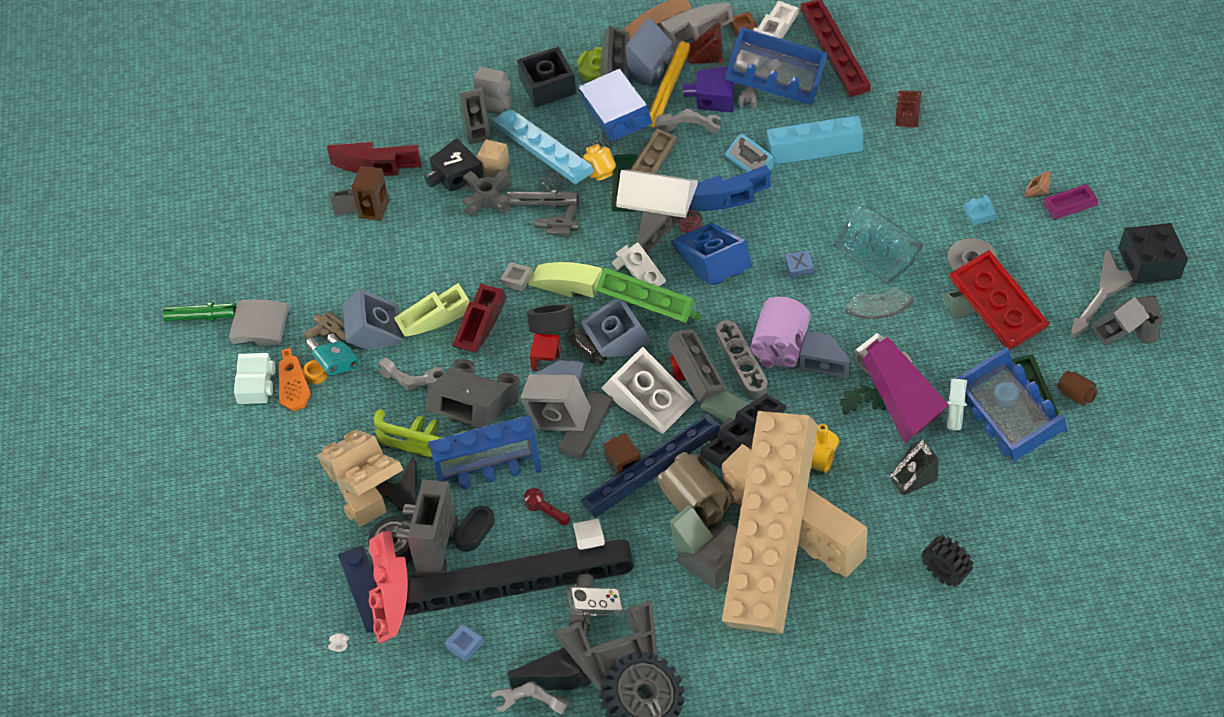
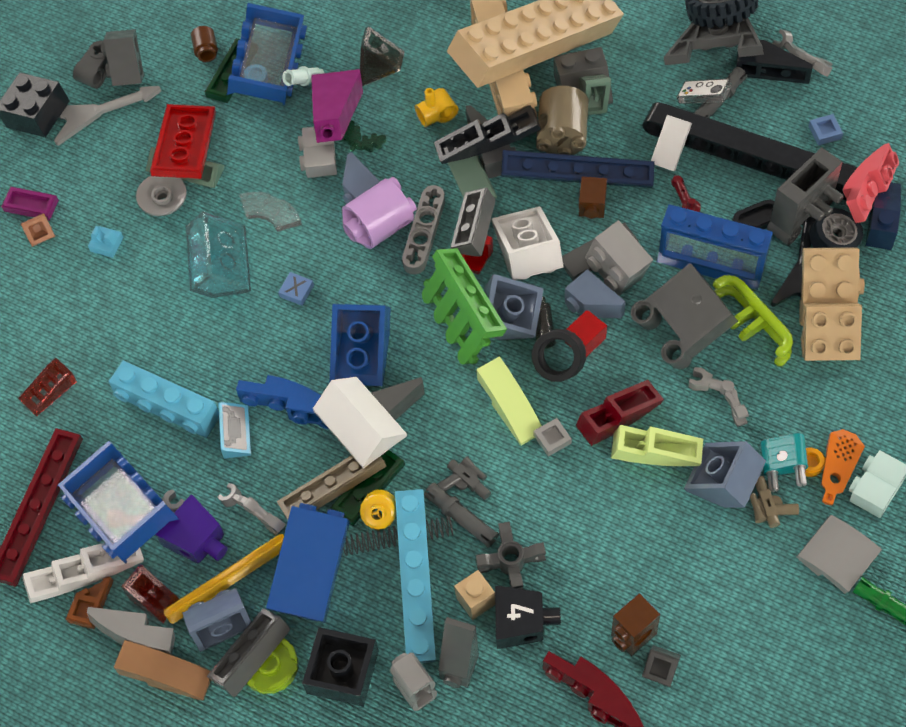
camera: 145 degrees left, 10 degrees up
(639, 264) = (436, 373): white bracket -> none

